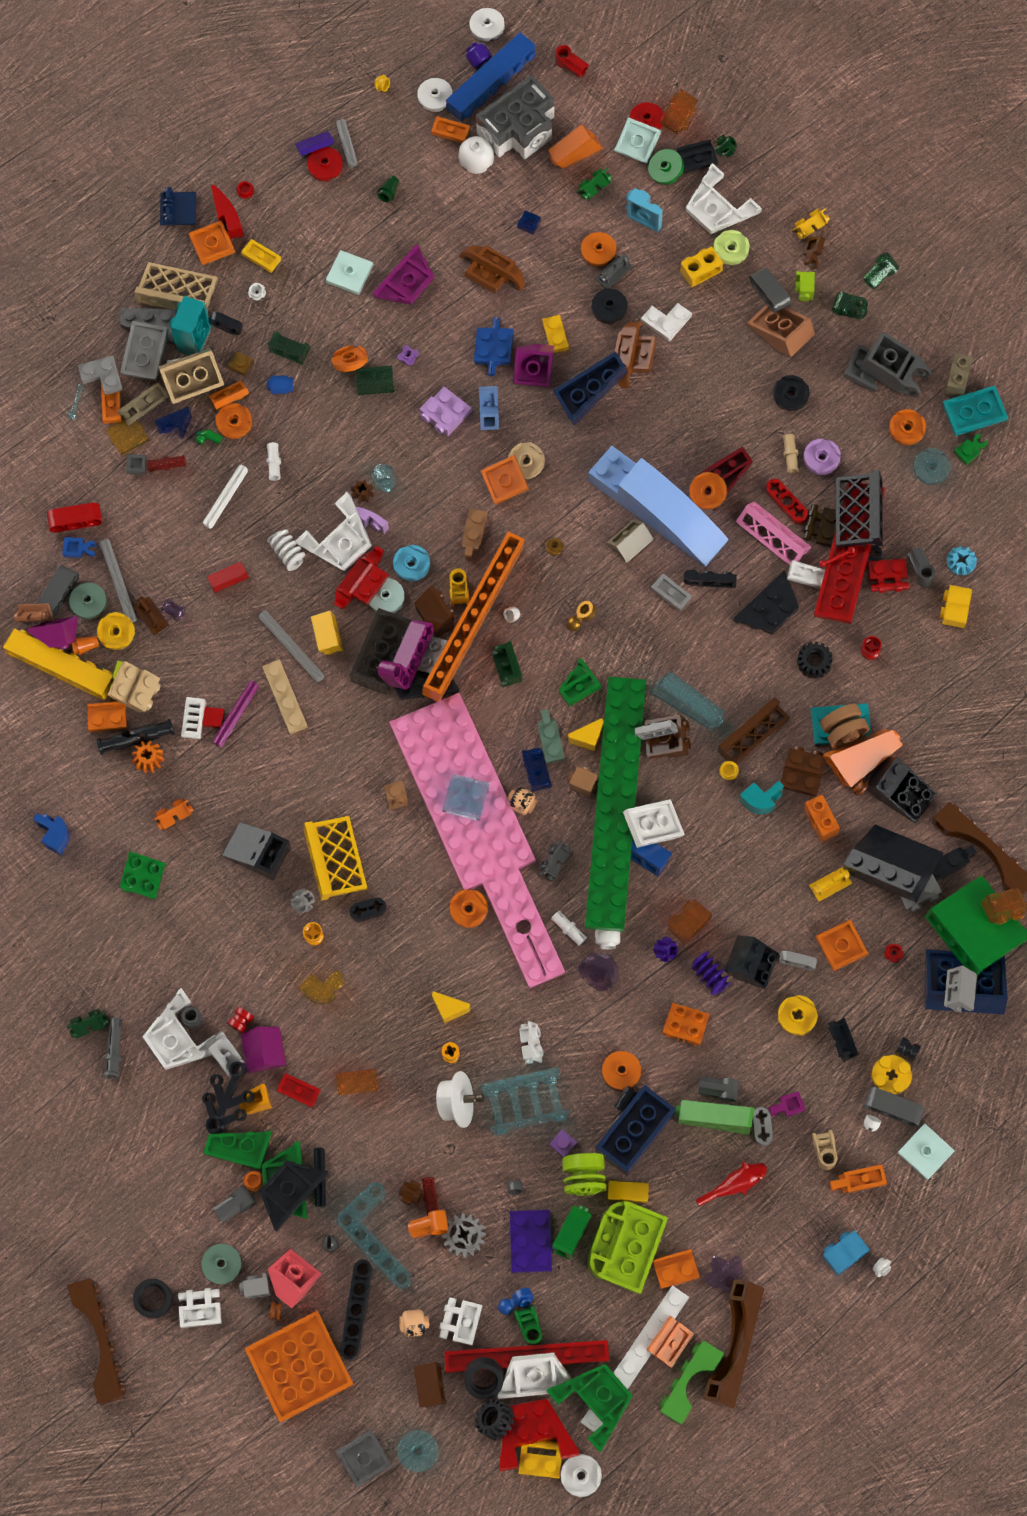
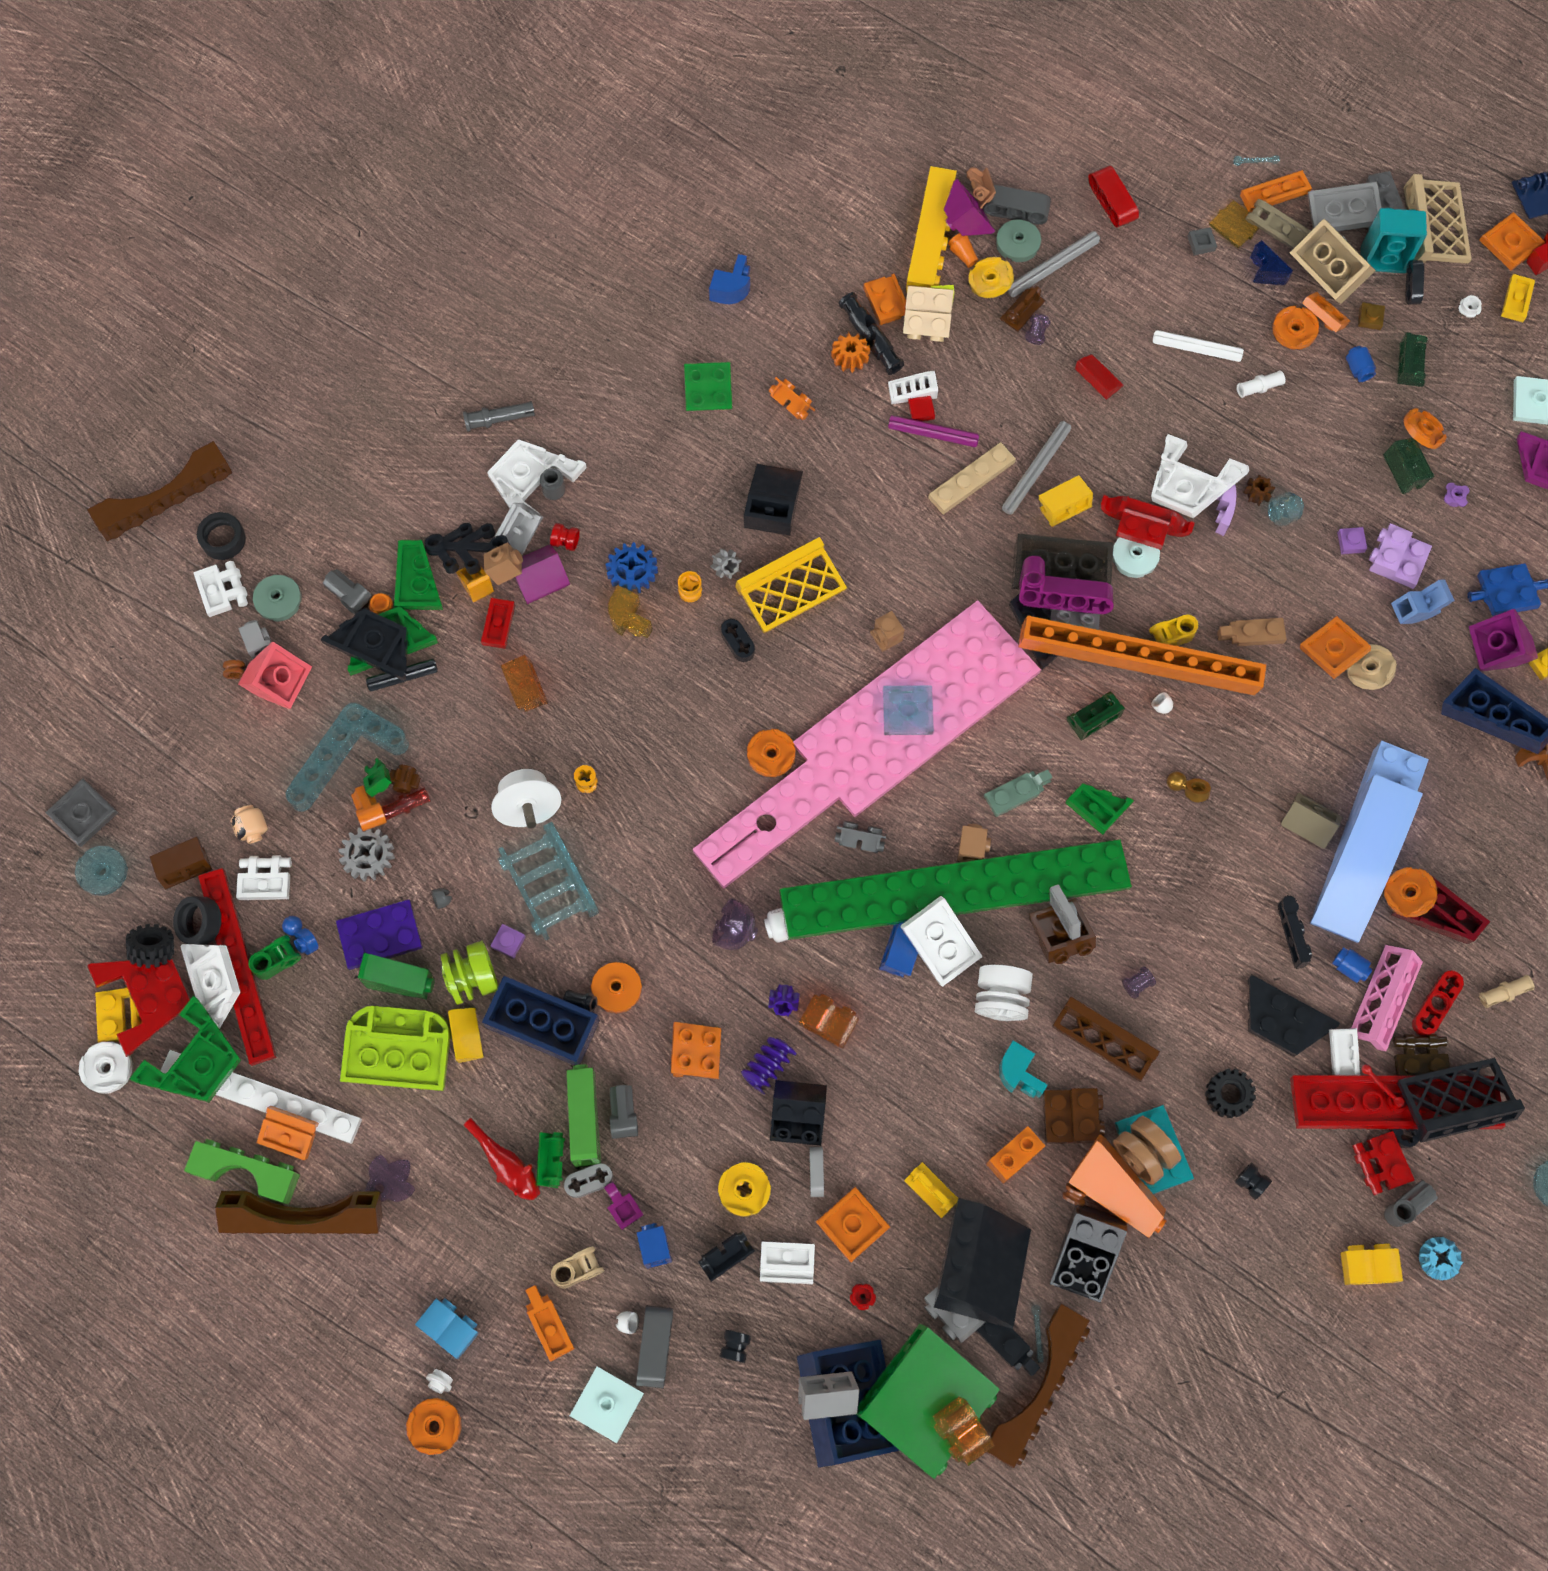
camera: 70 degrees right, 0 degrees up
(76, 547) = (1078, 208): blue plate -> none
(80, 1024) = (514, 374): dark green hinge -> none
(102, 369) = (1302, 174): light grey plate -> none
(167, 463) = (1215, 272): clear red pin -> none
(205, 435) = (1267, 306): green arm -> none
(255, 1070) = (503, 563): none -> medium nougat brick
(285, 549) = (1154, 427): white piece -> none
(291, 977) = (628, 558): none -> blue gear
(299, 1366) = (174, 712): orange plate -> none
(334, 1243) = (329, 710): dark grey hinge -> none
(358, 1320) = (241, 752): black beam -> none
(405, 1212) = (377, 778): none -> green plate
(410, 554) = (1192, 561): medium azure plate -> none
(421, 440) = (1352, 540): none -> medium lavender plate
(434, 610) = (1133, 610): reddish brown slope -> none
(449, 1007) = (640, 762): yellow slope -> none
(522, 801) = (925, 779): light nougat head -> none
(533, 1051) = (633, 867): white hinge -> none
(536, 769) = (970, 784): clear blue hinge -> none
(554, 551) = (1265, 735): pearl gold plate -> none
(569, 928) = (779, 876): white pin -> none
(587, 736) = (1034, 835): yellow slope -> none
(671, 592) = (1259, 888): light grey plate -> none
(676, 1269) = (382, 1118): orange plate -> none
(688, 701) = (1118, 946): clear light blue slope -> none
(703, 791) = (1003, 993): none -> white wheel
(718, 695) = (1139, 982): none -> clear purple bush
(729, 770) = (1044, 1021): yellow plate -> none
(745, 548) = (1352, 965): none -> blue brick
(749, 1151) = (548, 1163): none -> green hinge
(824, 448) = (1526, 1024): lavender plate -> none
(824, 1087) = (654, 1246): none -> blue brick
(857, 998) = (787, 1263): none -> white plate
(871, 643) = (1277, 1162): red wheel -> none
(879, 664) = (1253, 1181): none -> black wheel
(901, 1069) = (686, 1344): yellow plate -> none
(920, 1271) = (419, 1426): none -> orange plate
(931, 837) = (1036, 1310): none -> clear light blue hinge

